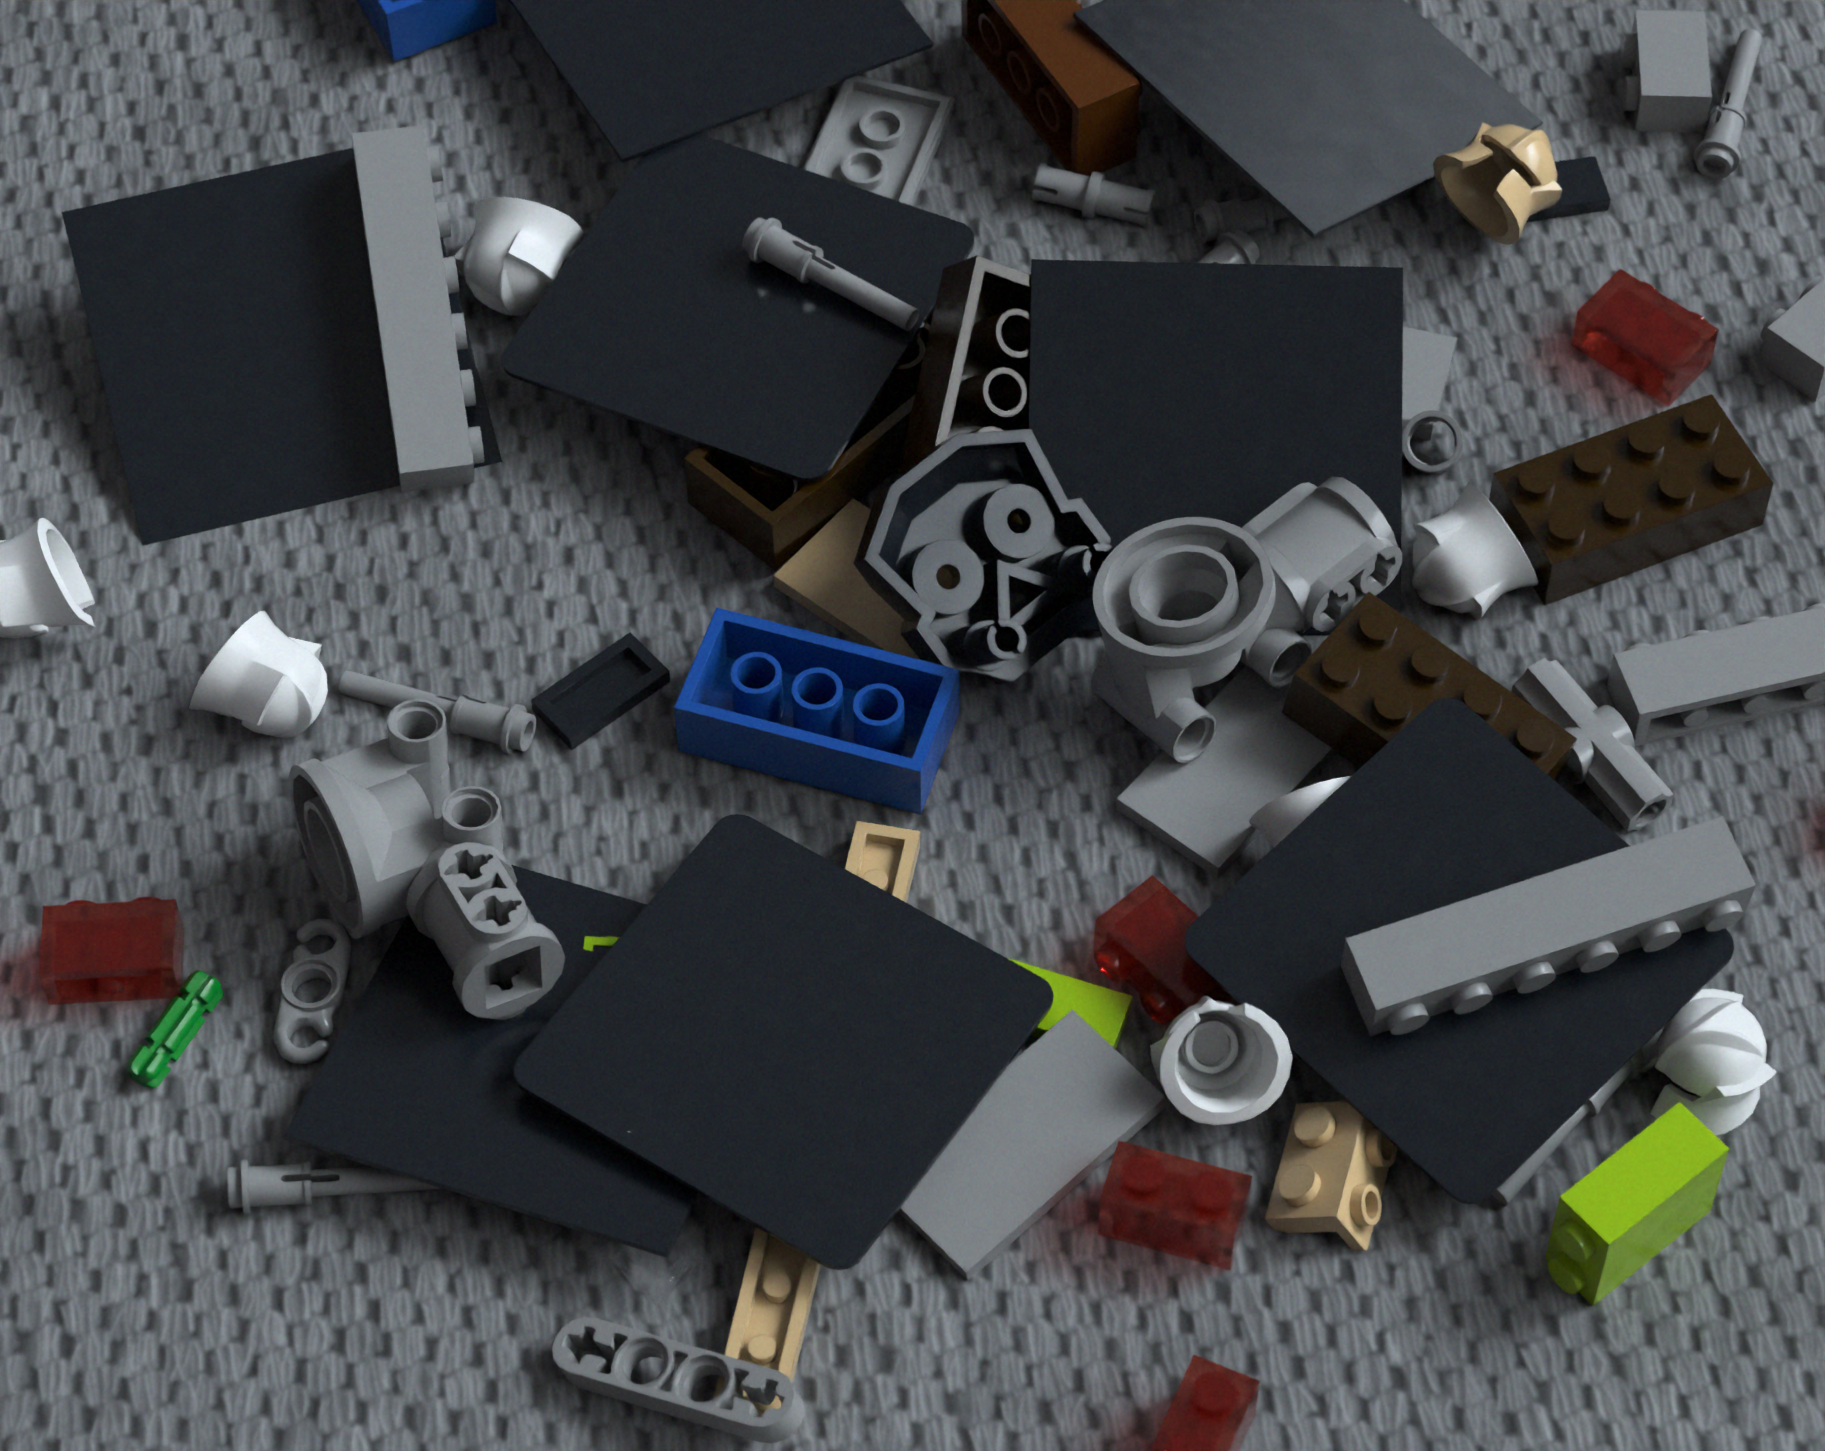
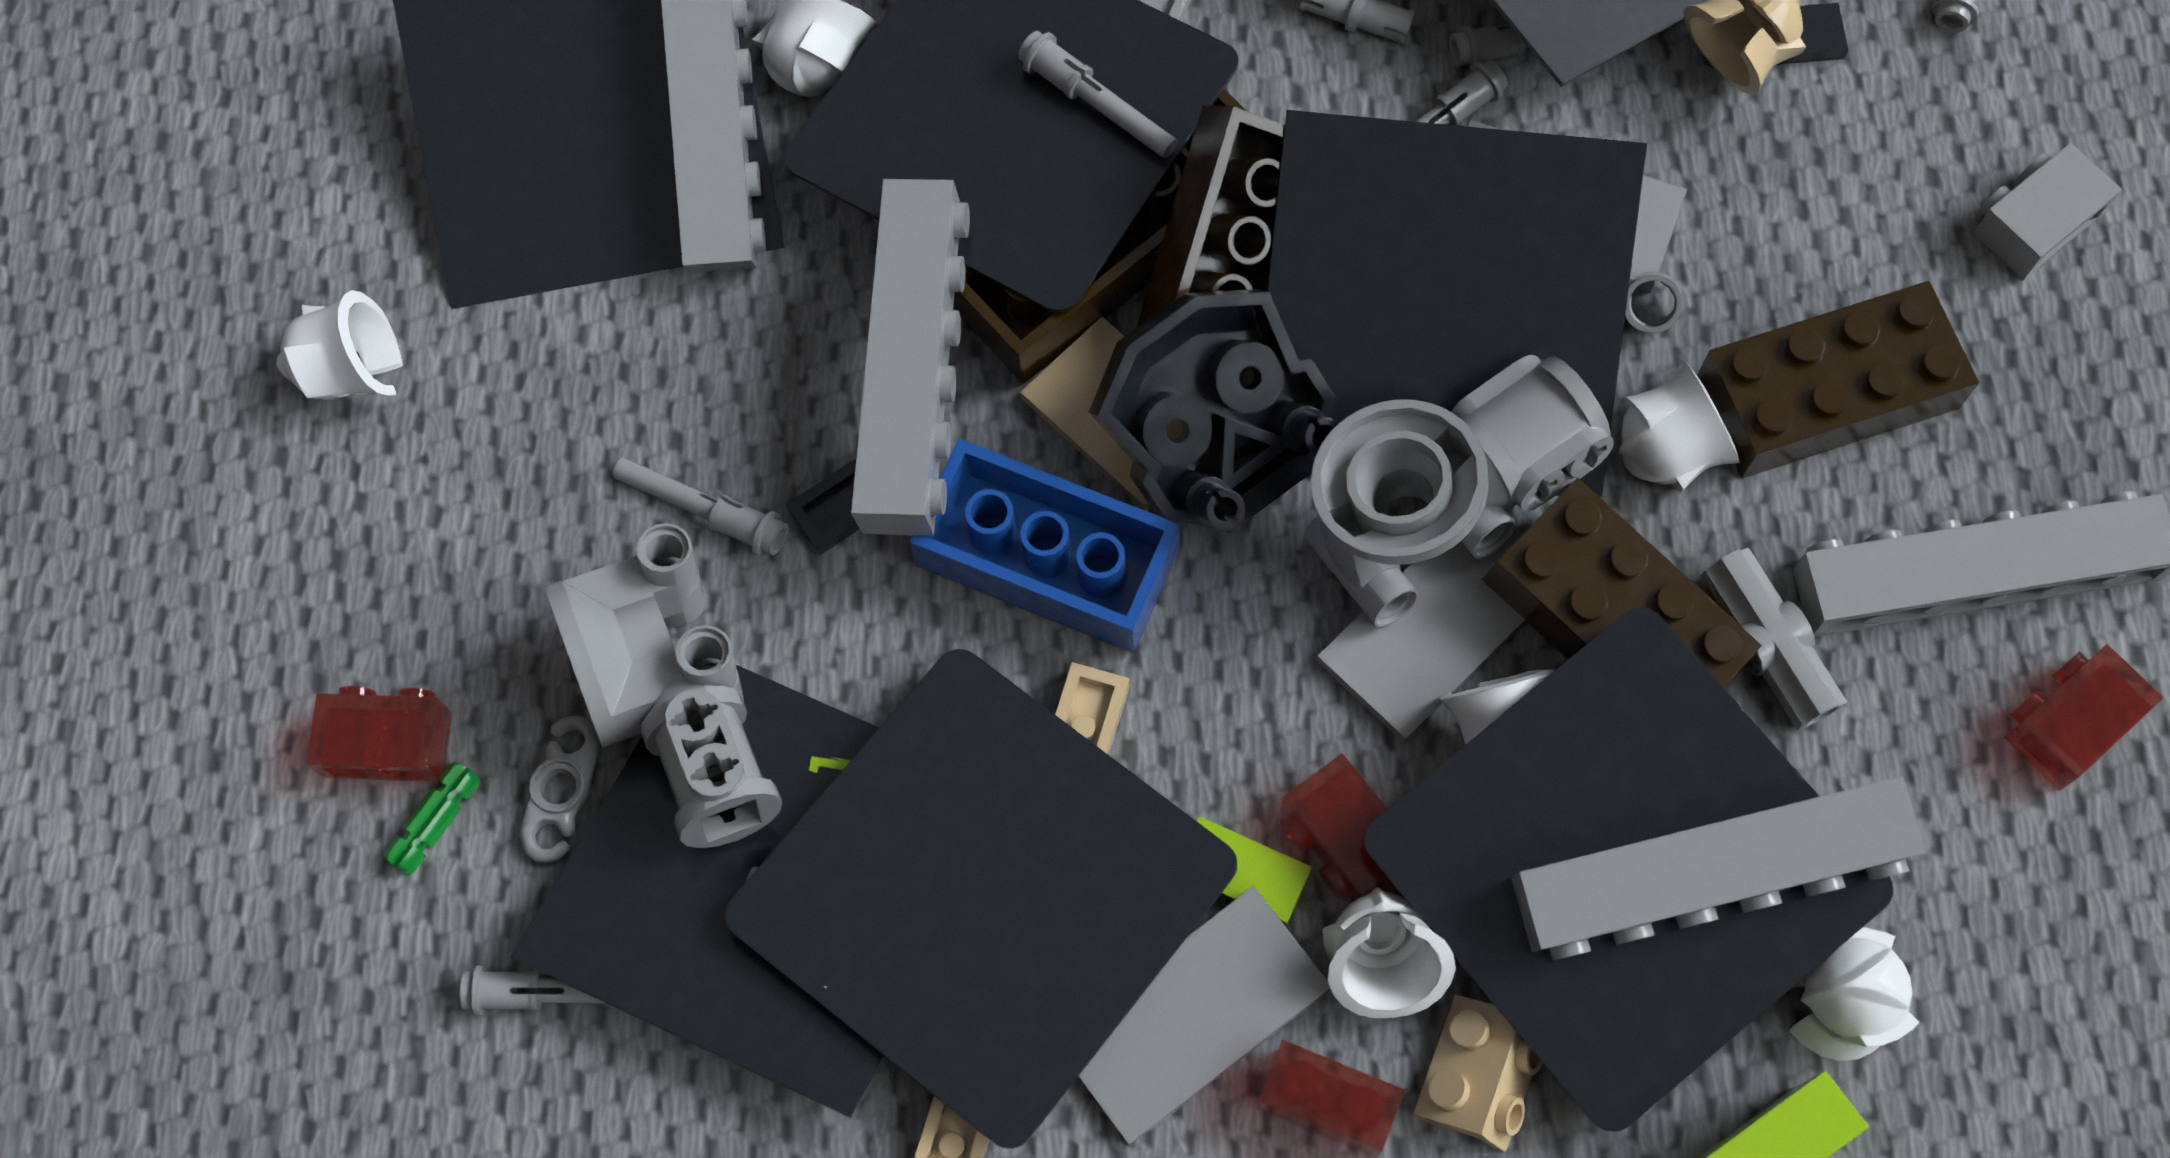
camera: 10 degrees right, 15 degrees up
(264, 680) = (541, 470): white helmet -> none
(658, 530) = (909, 358): none -> light grey brick
(1644, 337) = (1867, 203): clear red piece -> none

